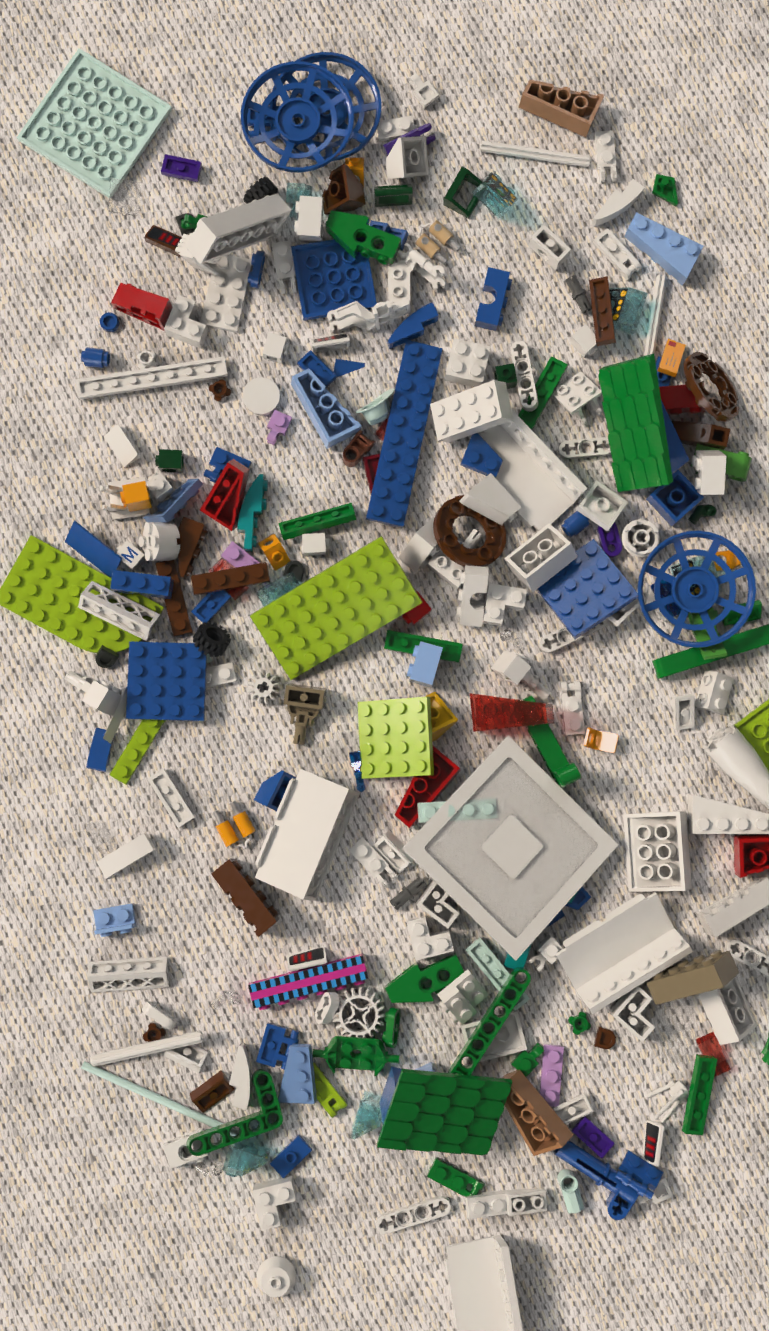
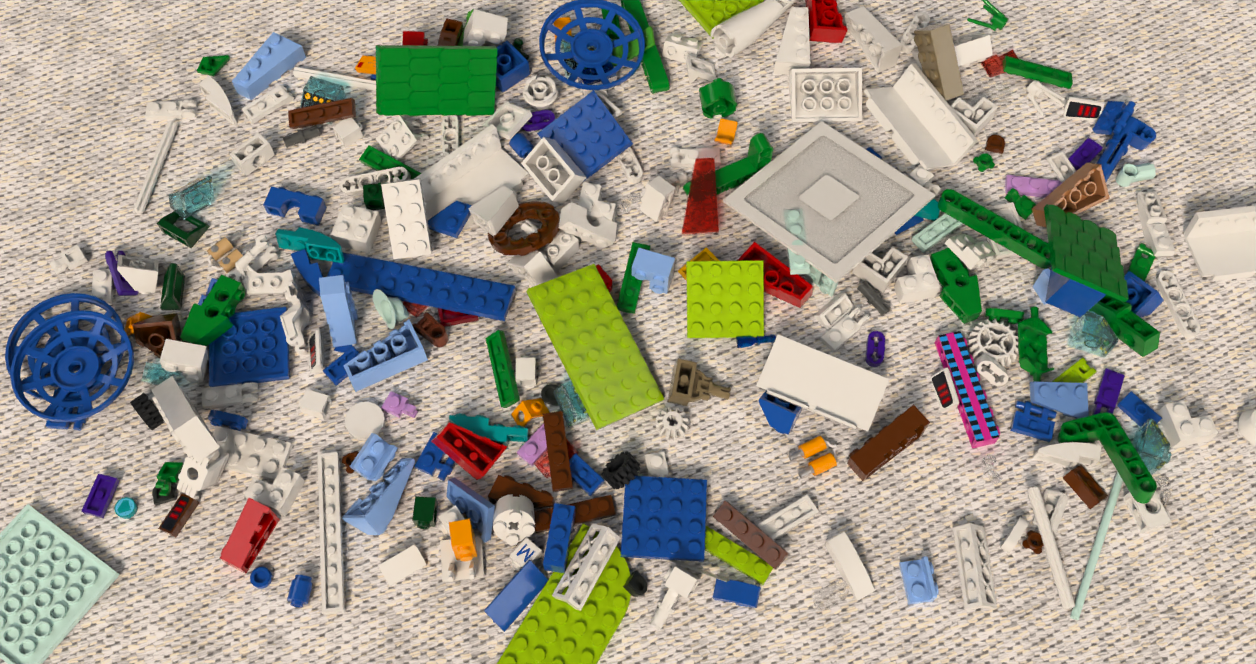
camera: 85 degrees left, 20 degrees down
(125, 197) = (121, 556): clear piece -> none
(146, 355) = (305, 536): white plate -> none
(153, 762) = (751, 535): none -> reddish brown plate
(171, 192) = (125, 508): none -> tile
(176, 418) = (378, 508): none -> light blue wedge
(221, 408) = (373, 458): none -> light blue bracket
(310, 1126) = (1108, 391): none -> dark purple hinge
(350, 896) = (879, 349): none -> dark purple beam
(362, 356) = (339, 309): none -> light blue wedge
(369, 1161) = (1127, 325): none -> green brick
(415, 1169) = (1141, 296): none -> blue slope
(447, 321) = (315, 243): none -> teal slope
(561, 105) = (114, 139): medium nougat wedge -> none
(641, 731) = (718, 98): none -> green brick
(693, 368) = (403, 30): reddish brown plate -> none

